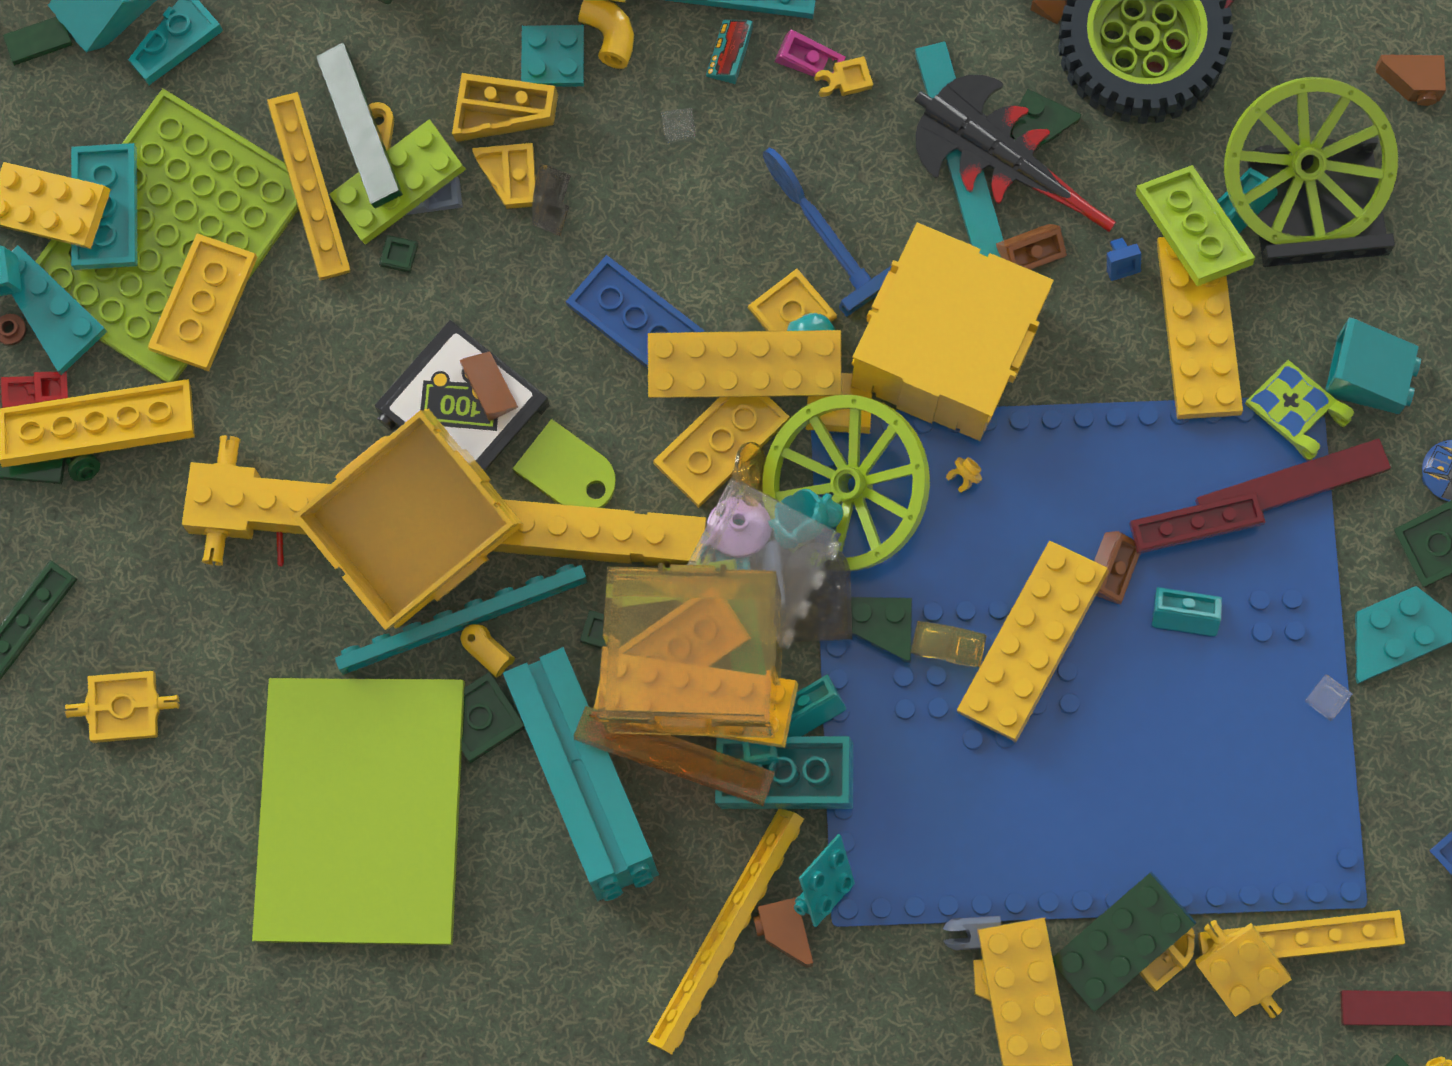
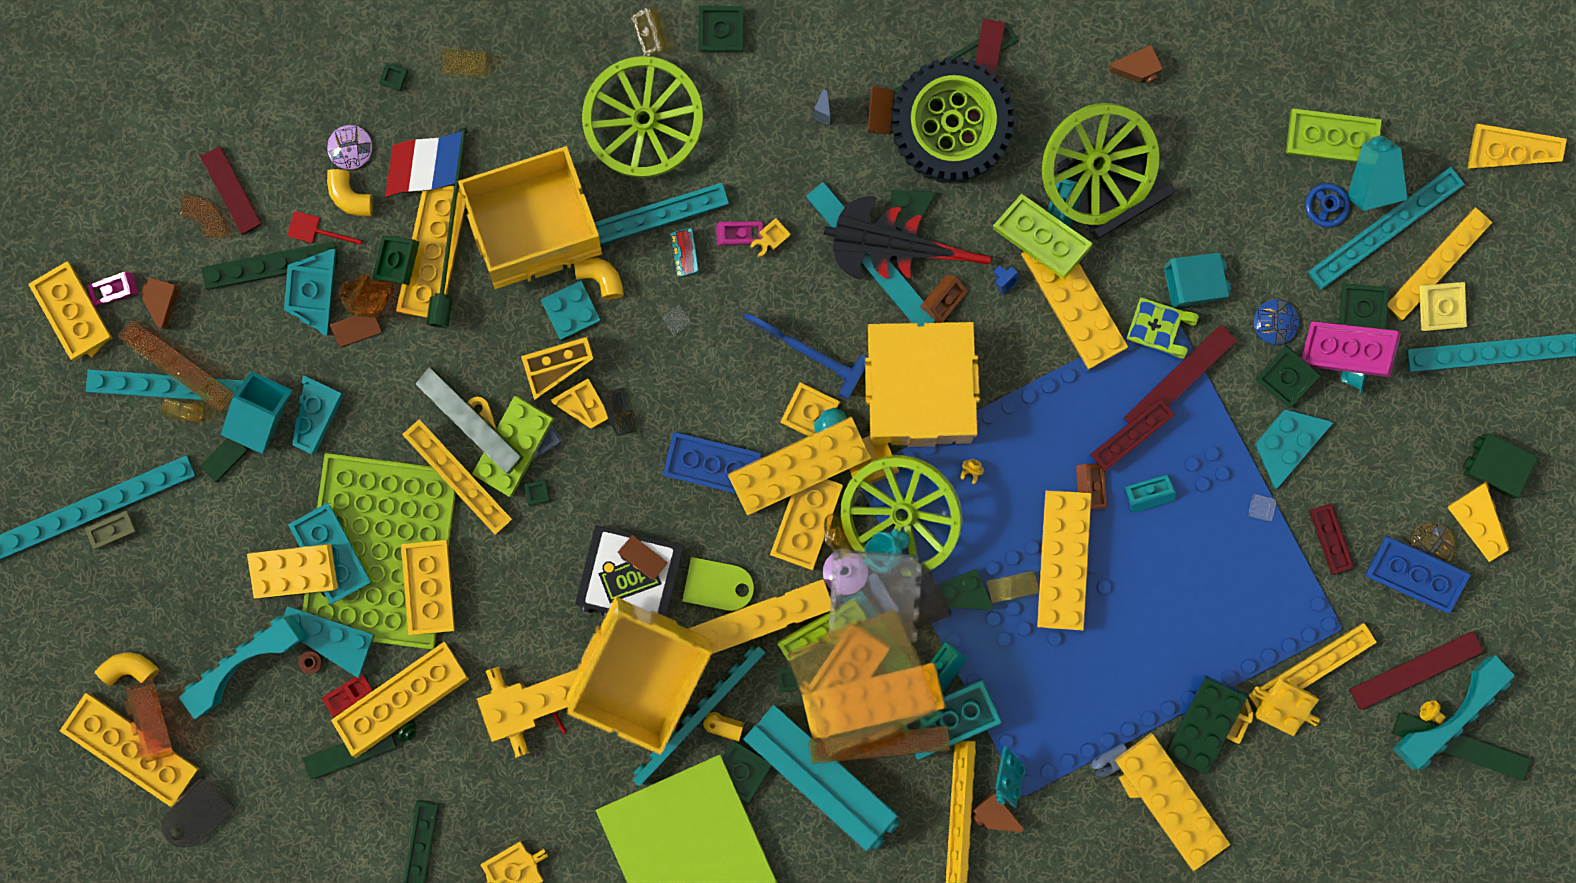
camera: 25 degrees left, 10 degrees up
(1404, 782) = (1331, 539): none -> dark red tile

